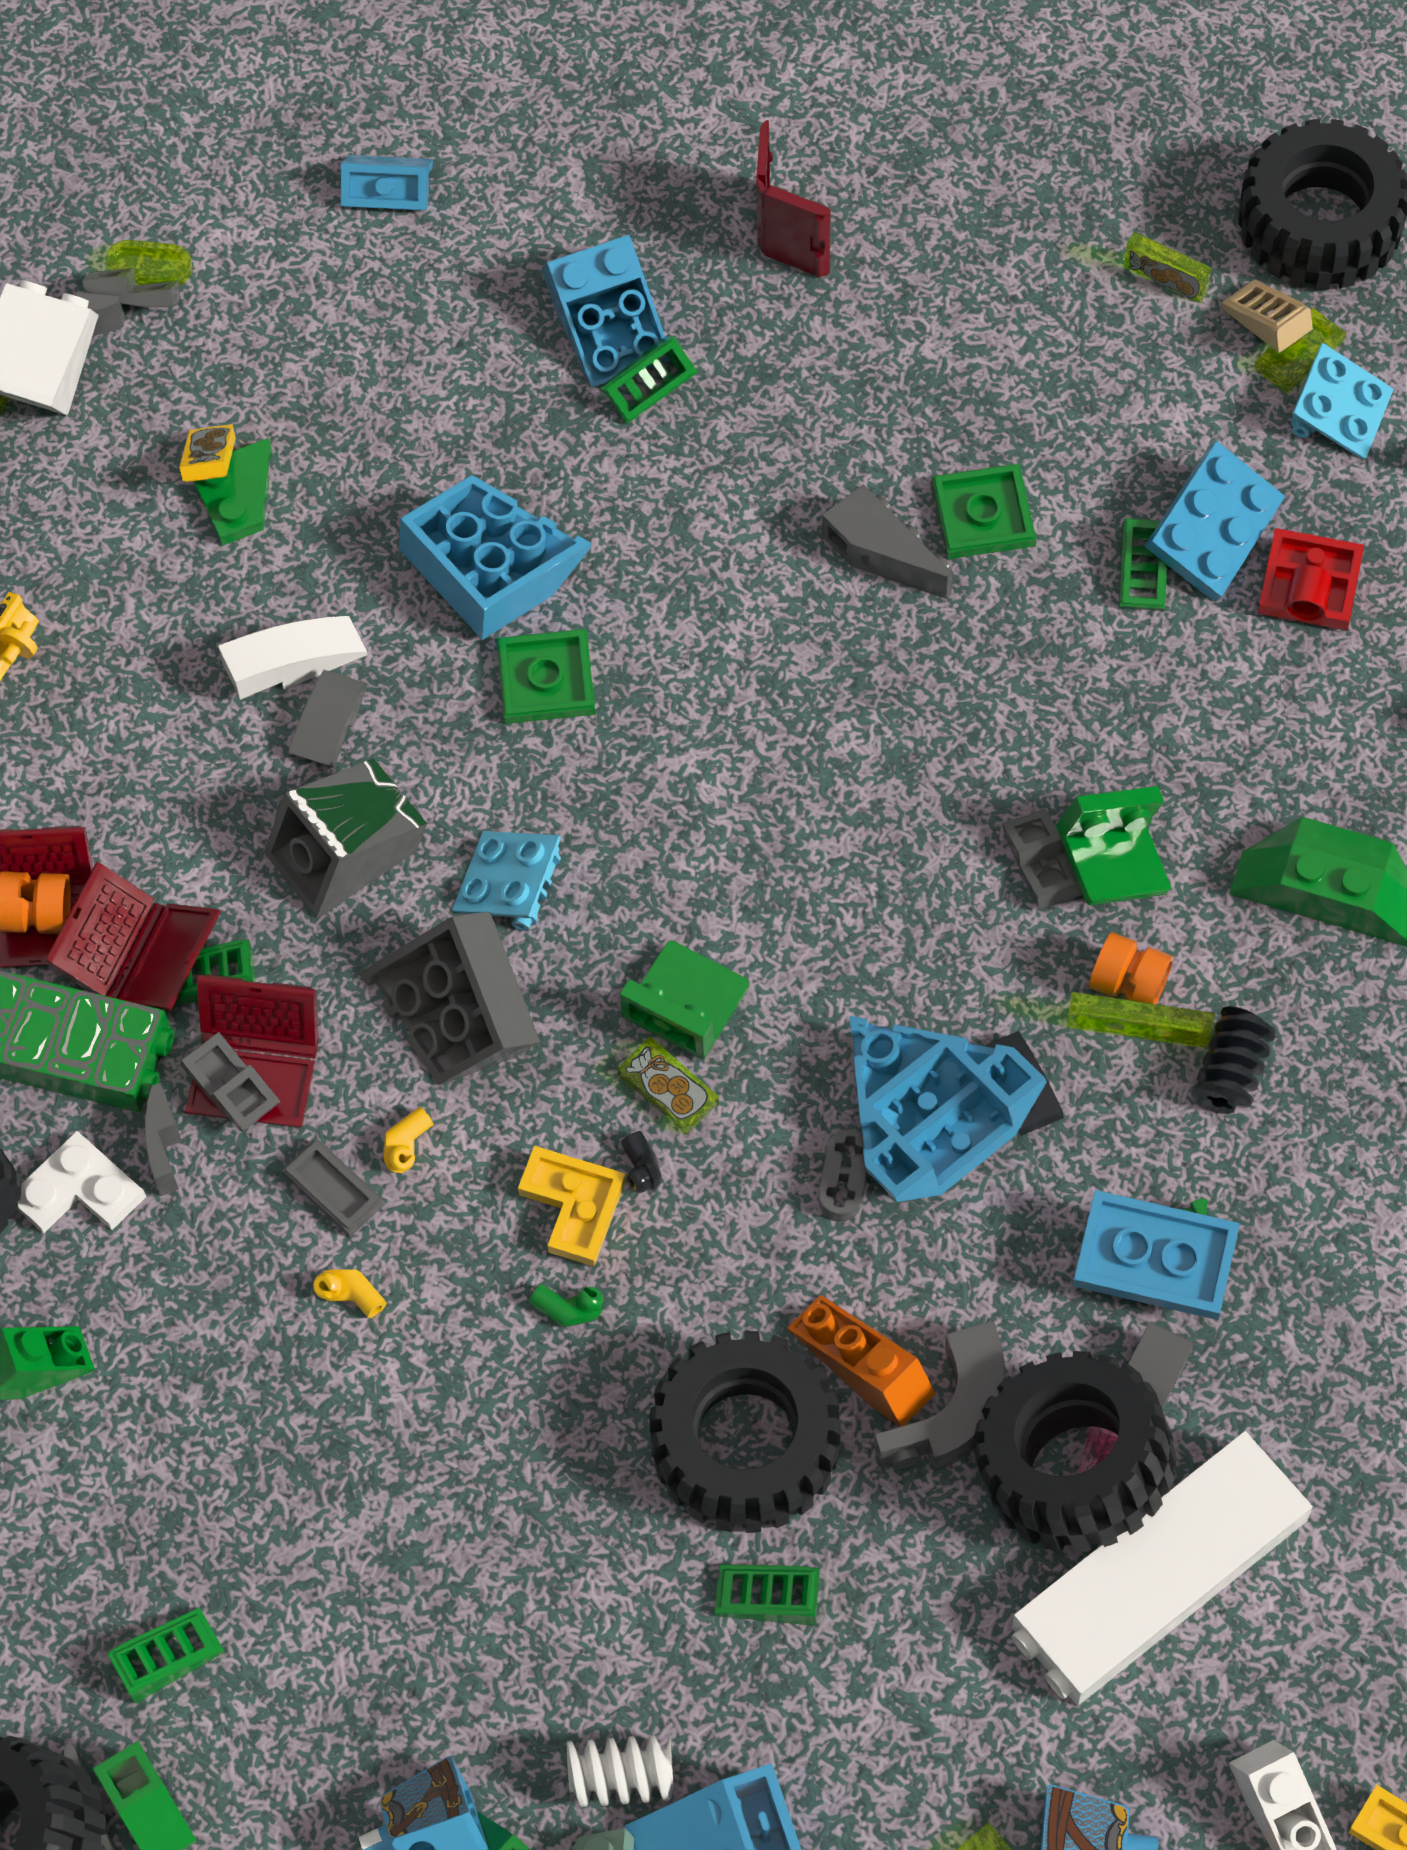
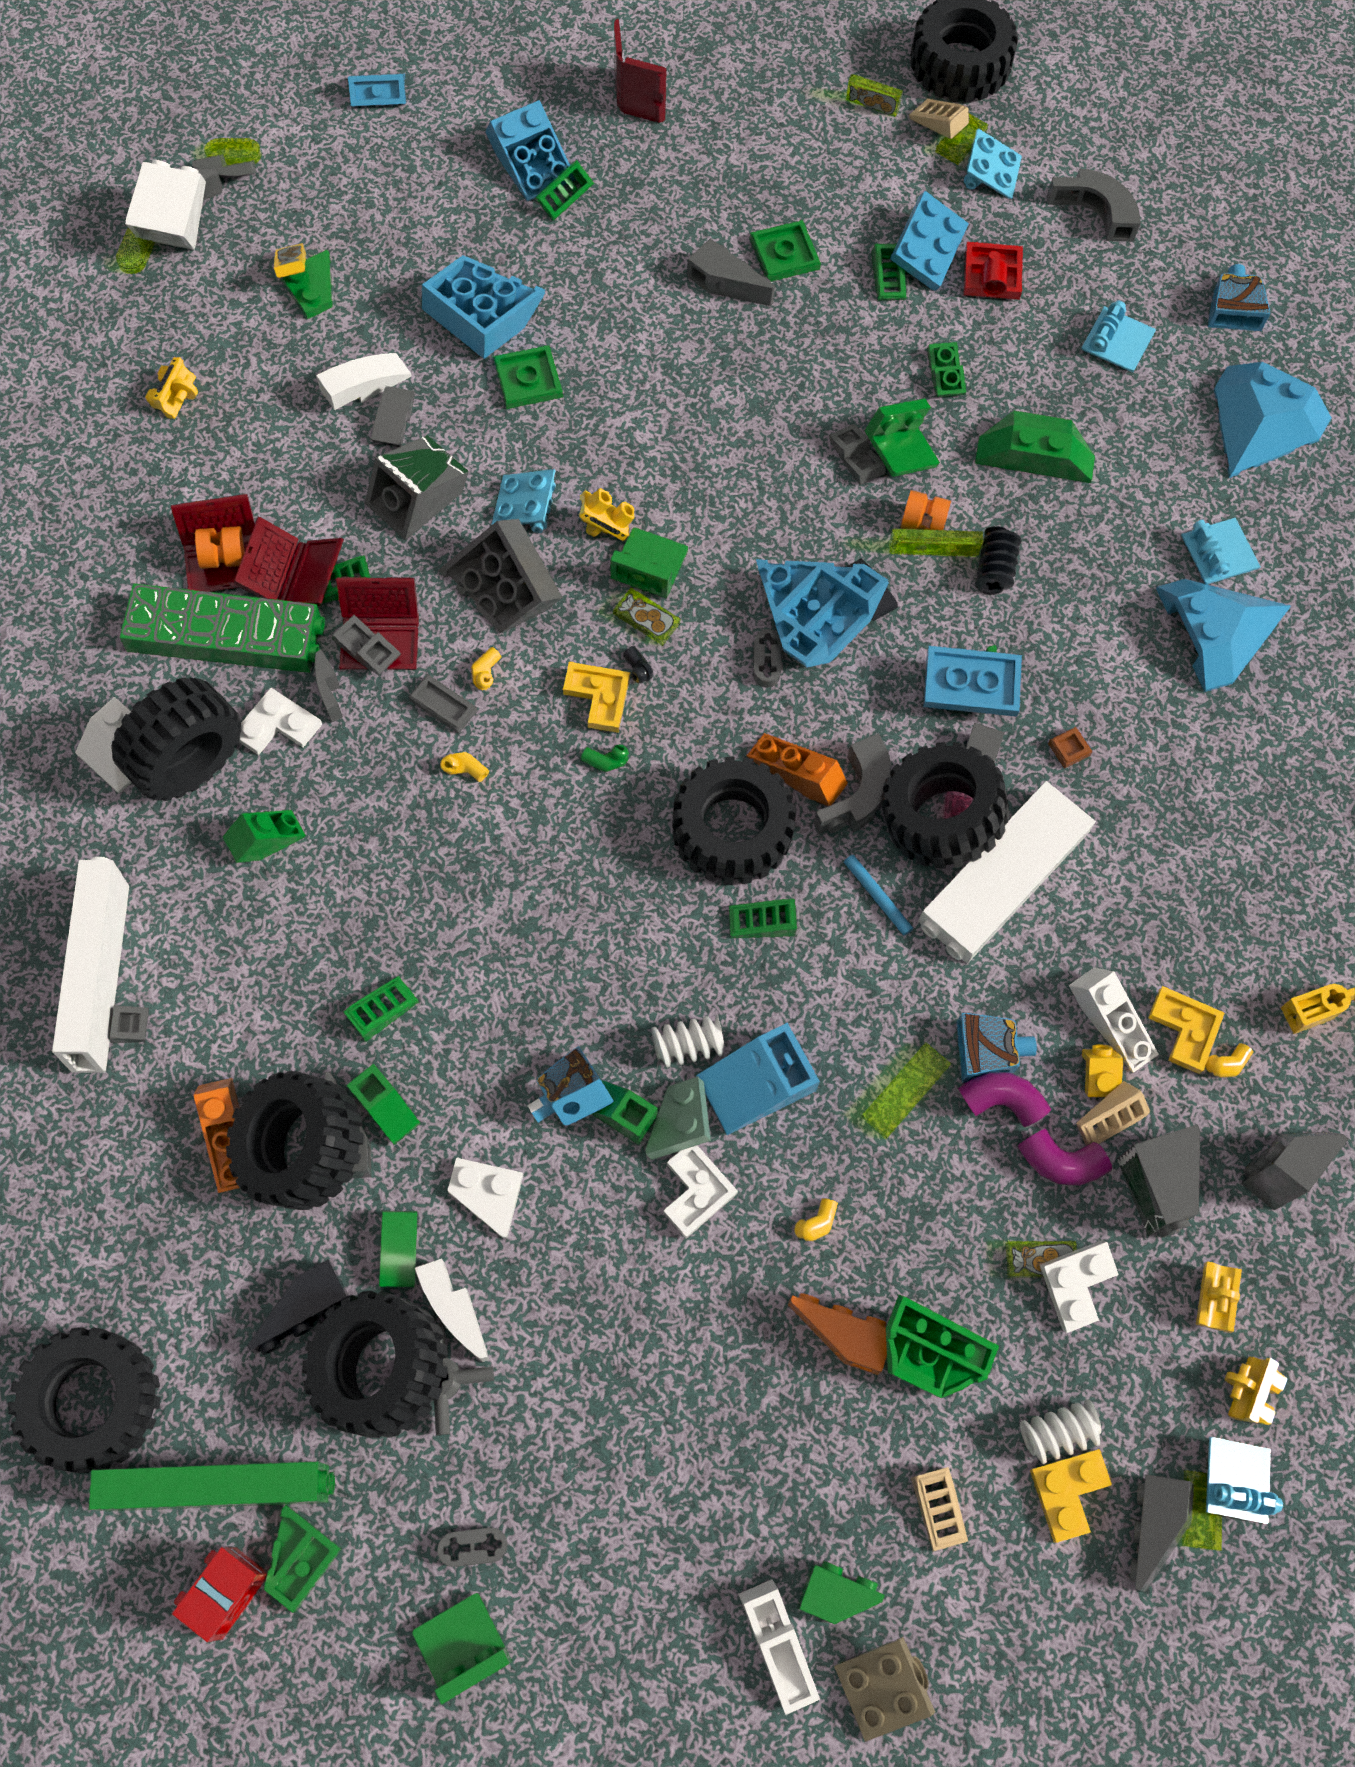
camera: 15 degrees left, 5 degrees up
(625, 918) = (603, 516): none -> yellow hips
(955, 1578) = (878, 895): none -> dark azure bar
(1208, 736) = (946, 369): none -> green slope
(1300, 1378) = (1070, 747): none -> dark orange tile

